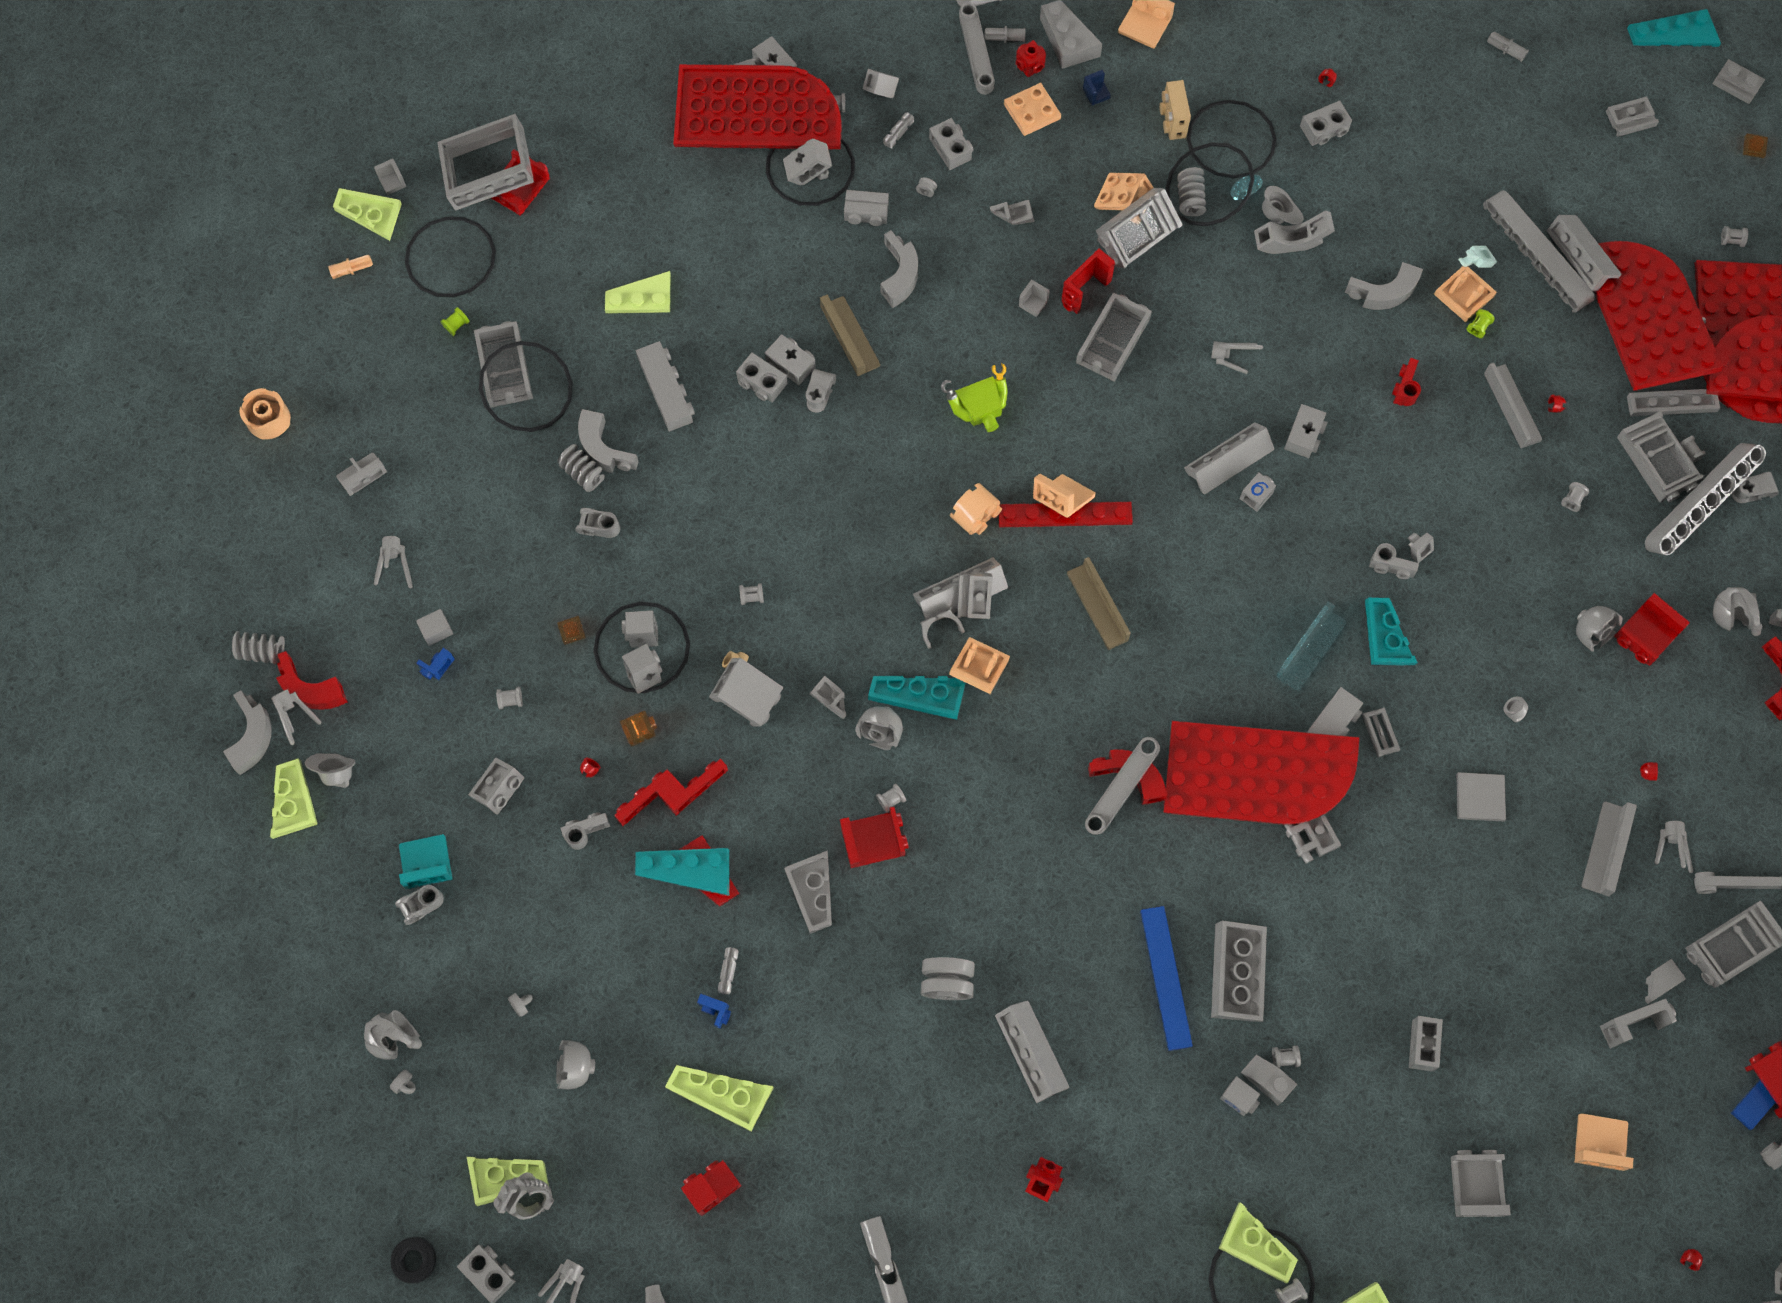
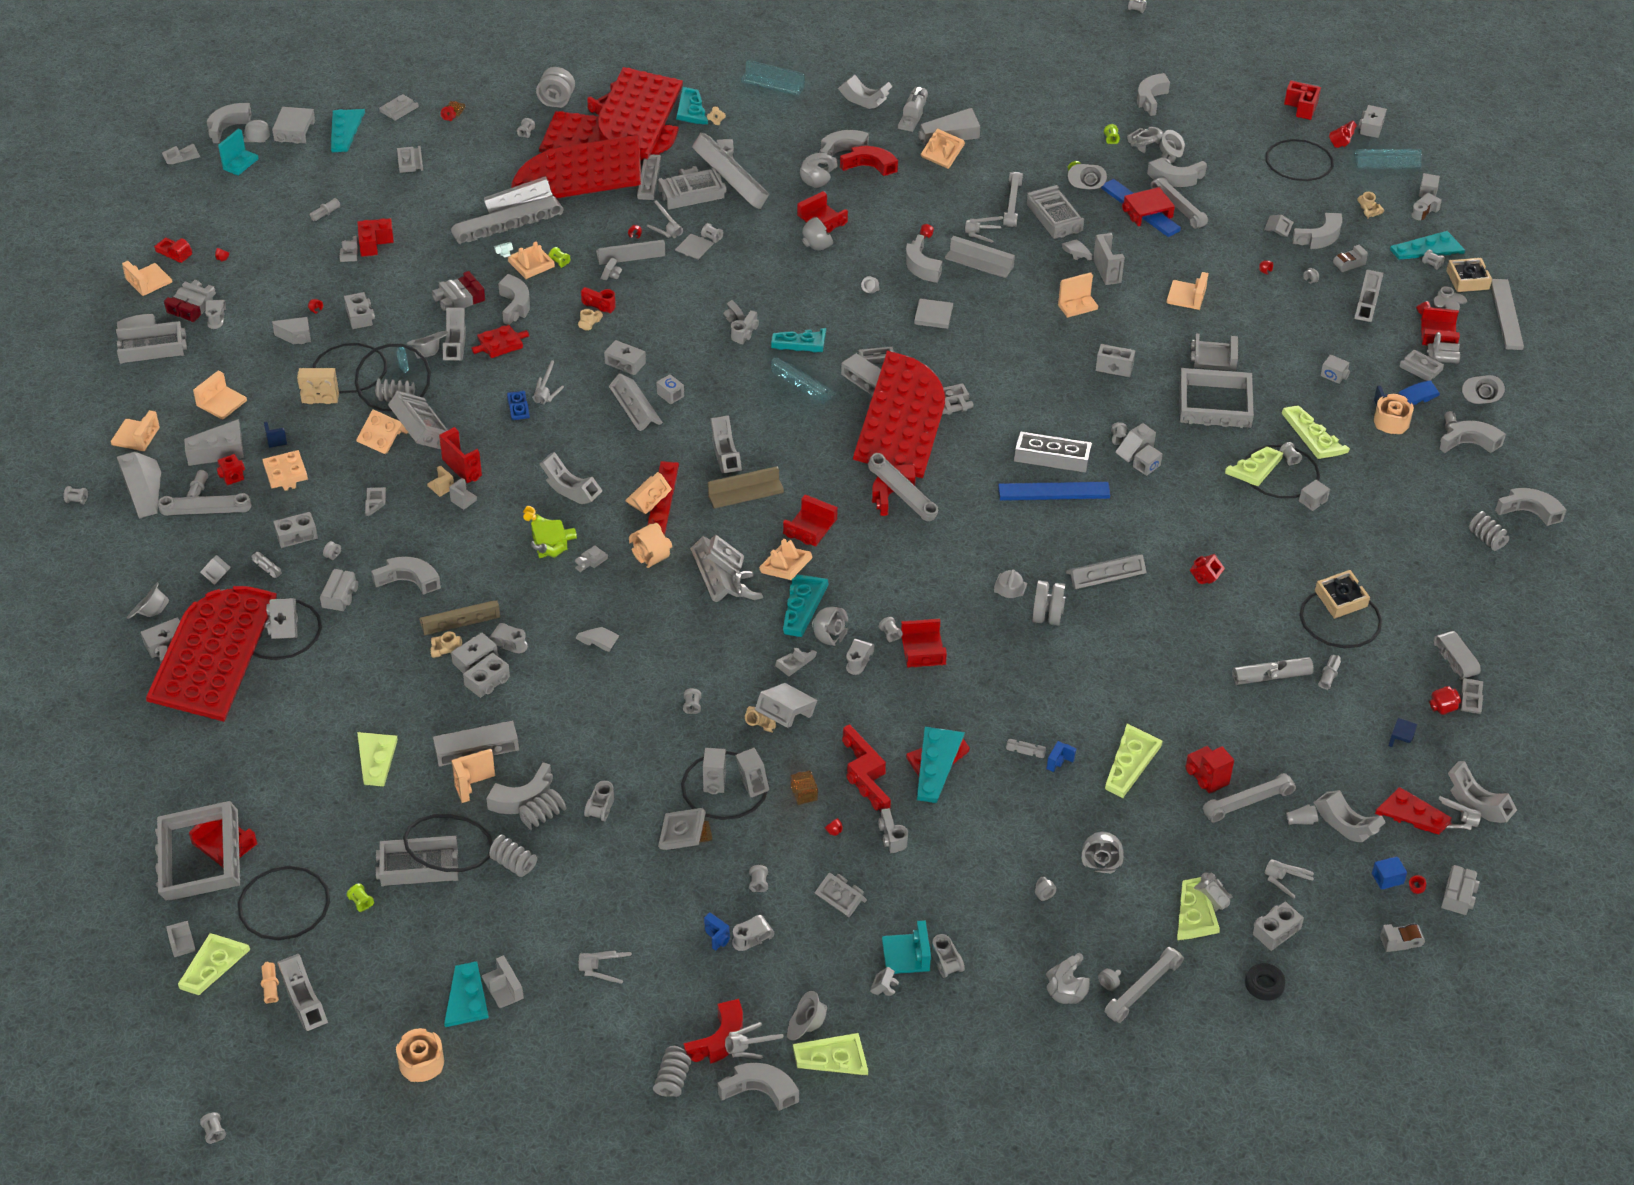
camera: 85 degrees left, 25 degrees down
(185, 258) = (212, 1128): none -> light grey bush
(336, 295) = (301, 993): none -> light grey arch
(343, 443) = (466, 996): none -> teal wing
(384, 840) = (883, 981): none -> light grey tile
(433, 1149) = (1118, 1009): none -> light grey piece
(434, 627) = (679, 926): light grey panel -> none
(438, 701) = (751, 933): none -> light grey piece
(514, 449) = (512, 856): none -> light grey piece
(567, 610) = (682, 829): none -> light grey tile
(606, 378) = (470, 770): none -> light nougat bracket
(700, 1280) = (1216, 810): none -> light grey piece
(802, 328) = (445, 644): none -> tan plate
(812, 890) = (958, 688): light grey wing -> none
(820, 36) = (152, 604): none -> light grey piece
(835, 483) = (600, 637): none -> light grey slope
(845, 766) = (858, 656): none -> light grey piece
(960, 454) = (591, 557): none -> light grey plate
(990, 934) = (1010, 584): none -> light grey piece
(1051, 273) = (442, 483): none -> tan panel
(1054, 686) = (812, 521): none -> red panel
(1071, 405) = (567, 484): none -> light grey arch
(1113, 336) = (512, 451): door -> none
(1149, 575) = (724, 446): none -> light grey arch
(1198, 330) = (518, 405): none -> blue slope
(1276, 66) = (293, 330): none -> light grey slope
(1309, 287) = (500, 341): none -> red plate
(1371, 377) = (589, 318): none -> tan plate
(1384, 224) = (459, 292): none -> light grey hips
(1422, 1183) = (1216, 379): none -> light grey window
(1439, 90) = (349, 250): none -> light grey slope
(1466, 104) = (374, 233): none -> red brick
(1468, 387) = (611, 270): none -> light grey tile
(1548, 480) = (694, 246): none -> light grey piece
(1549, 985) = (1076, 295): none -> light nougat bracket
(1567, 775) = (920, 265): none -> light grey arch
(1572, 447) = (672, 227): none -> light grey plant
(1737, 139) = (445, 116): none -> red plate

